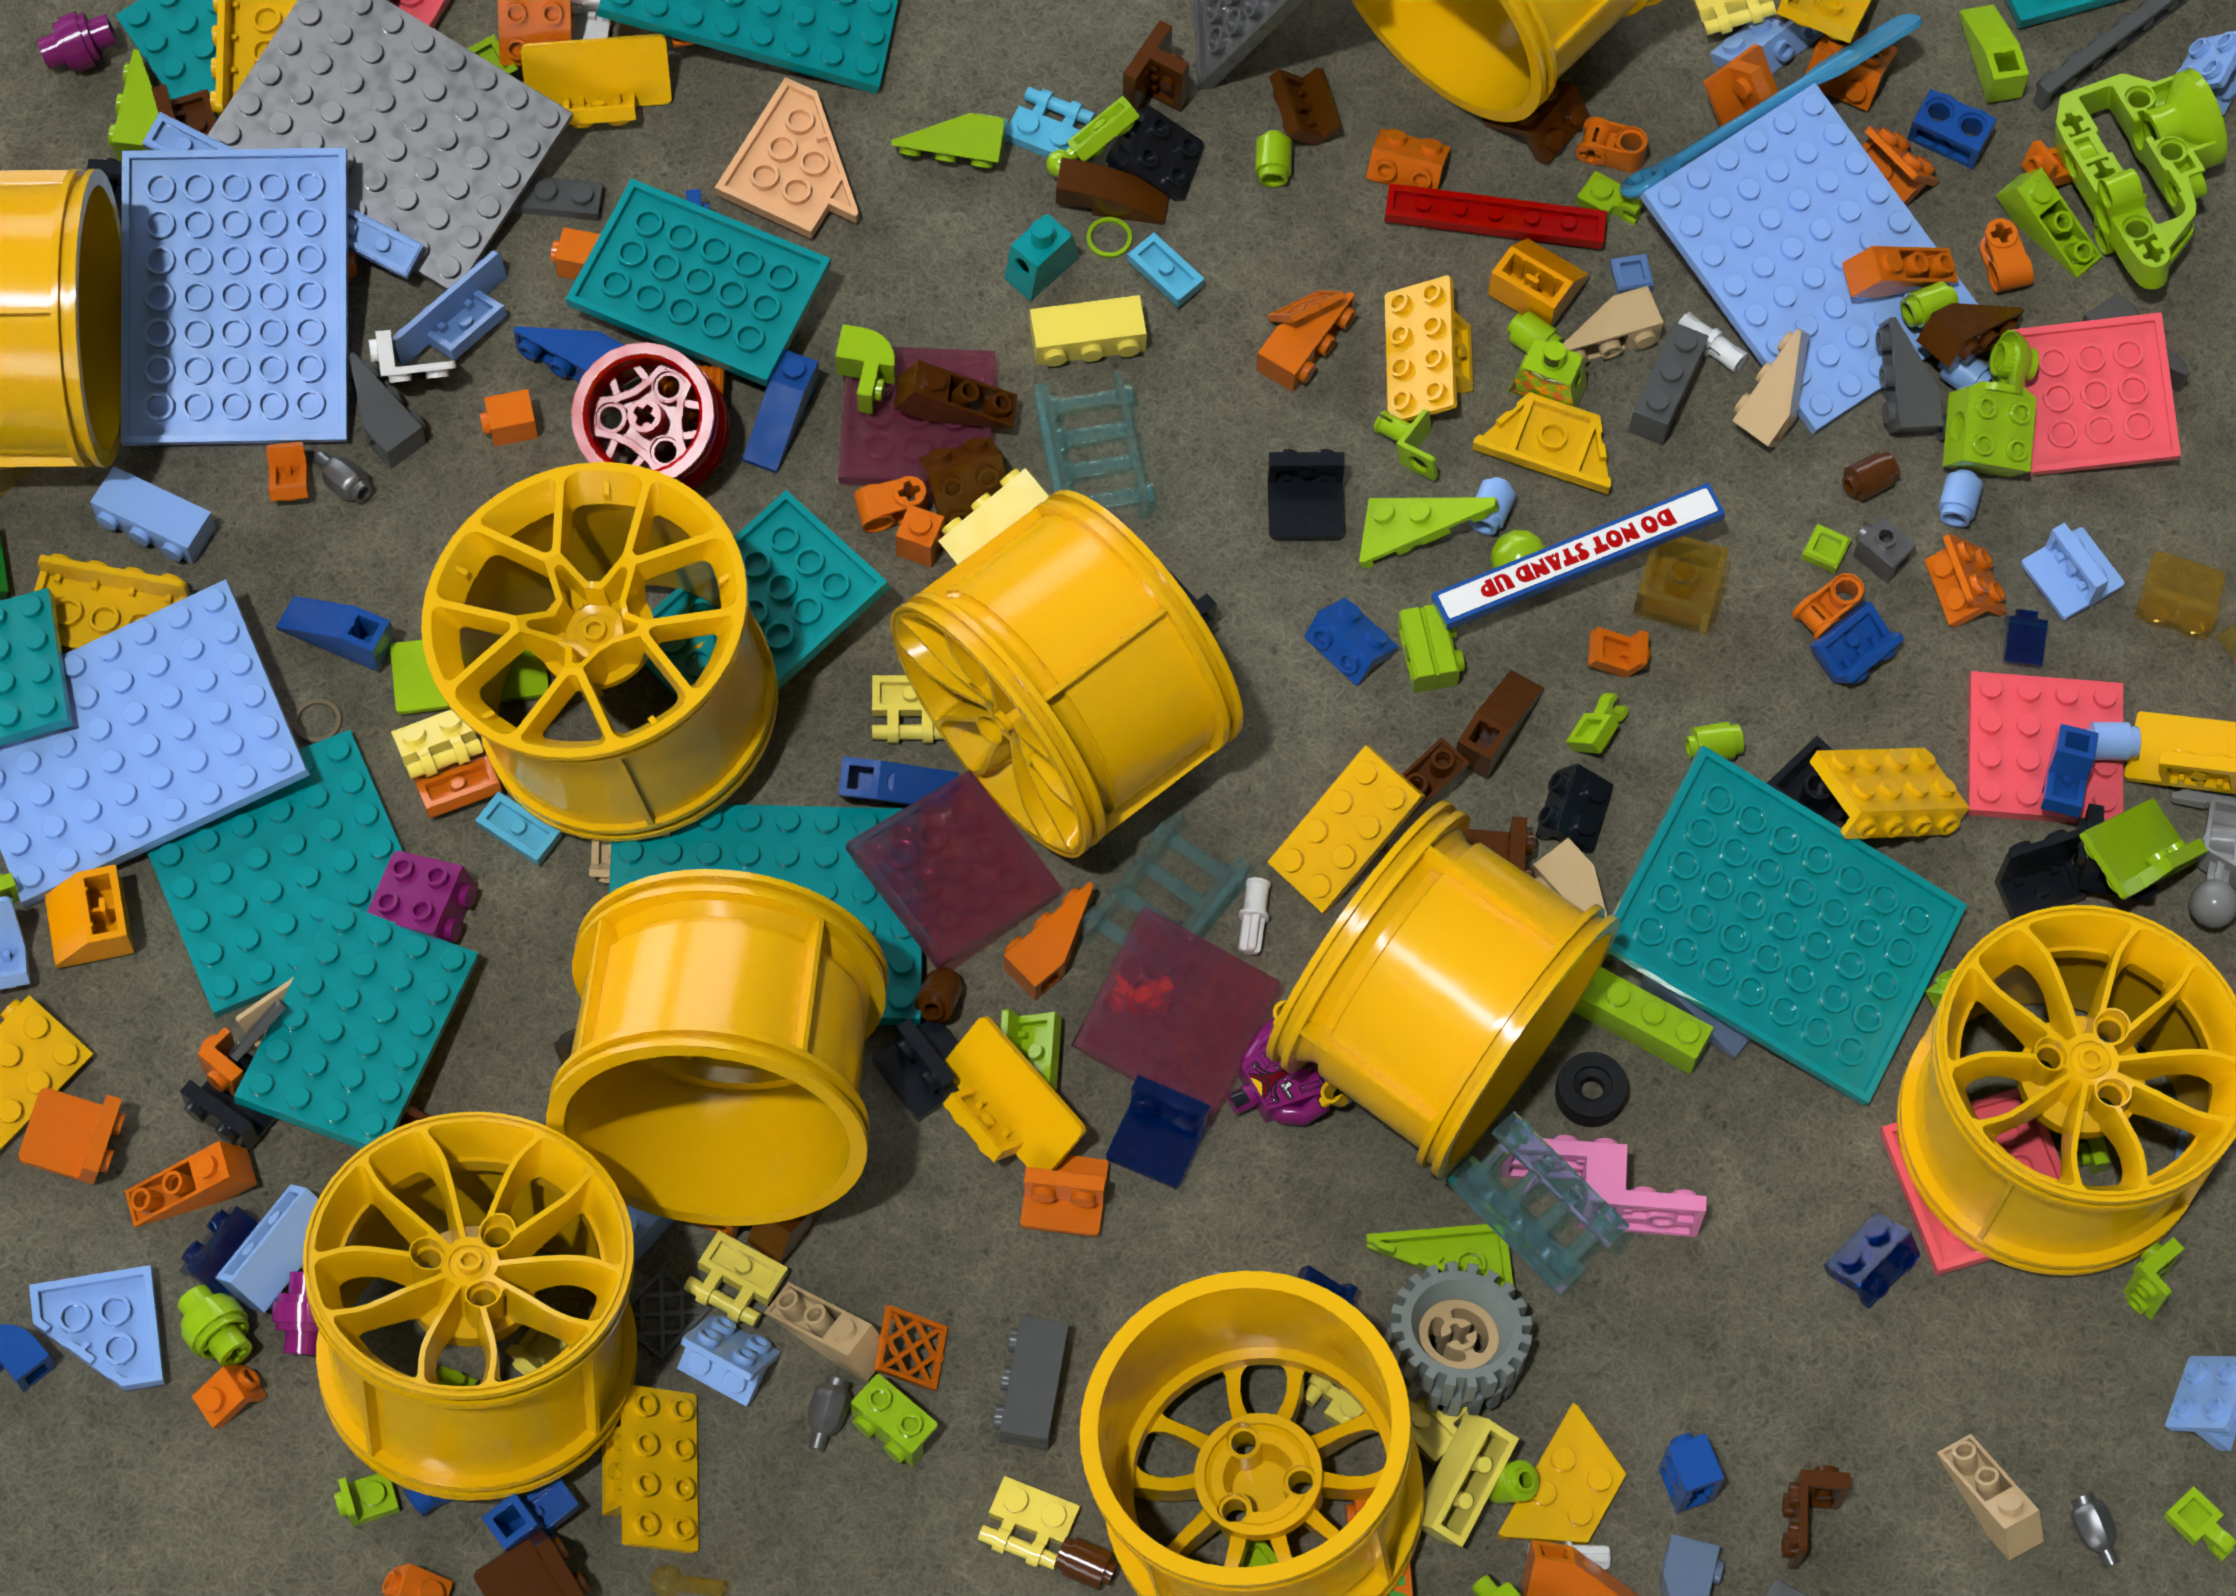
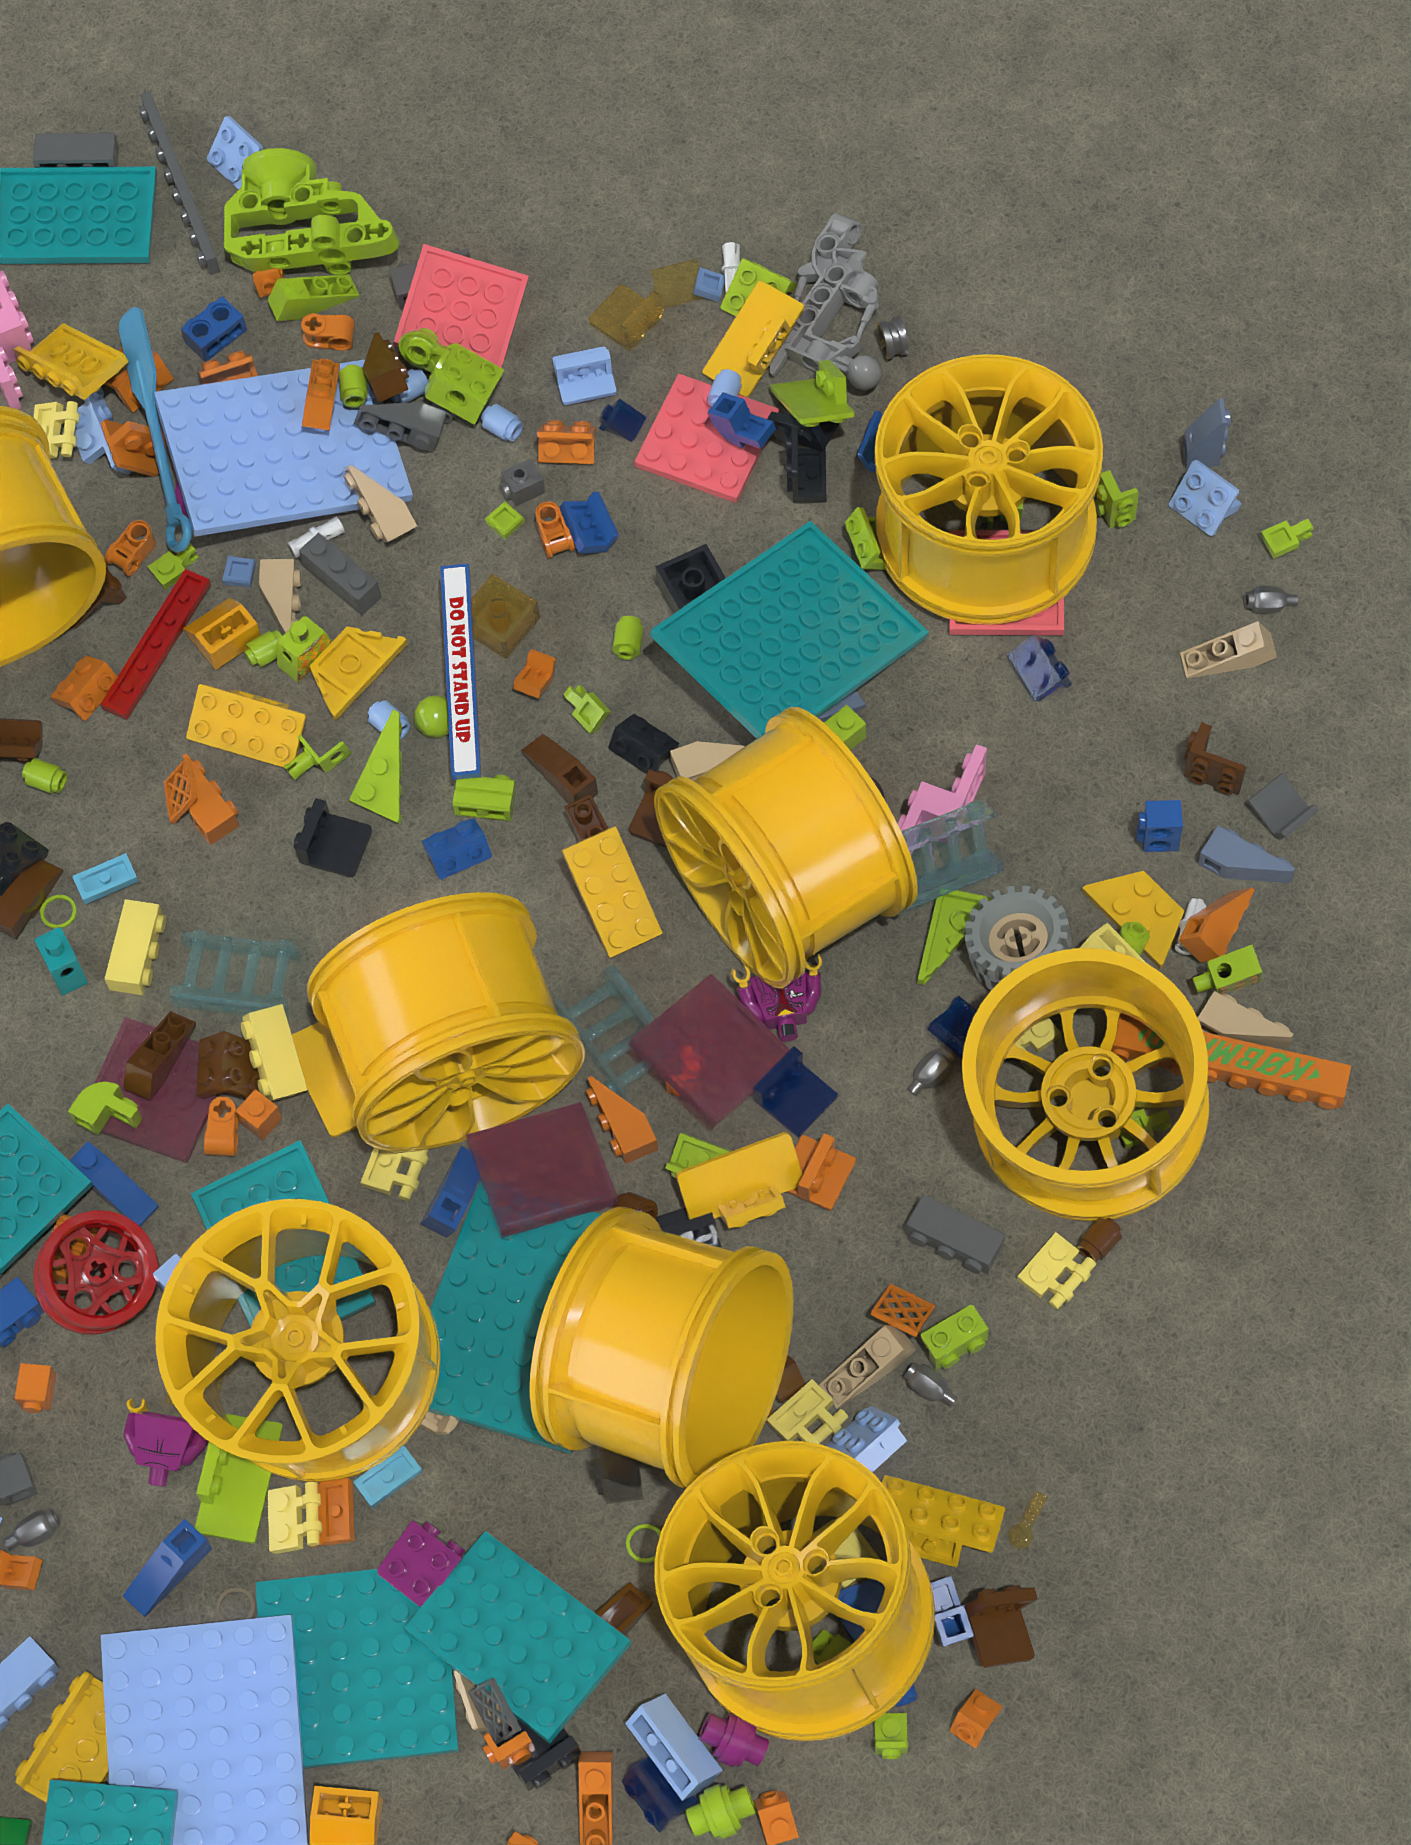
camera: 65 degrees left, 0 degrees up
(1253, 915) = (648, 979): white axle -> none
(1870, 475) = (462, 472): reddish brown brick -> none
(1891, 792) = (713, 534): yellow bracket -> none
(1994, 53) = (165, 280): lime slope -> none

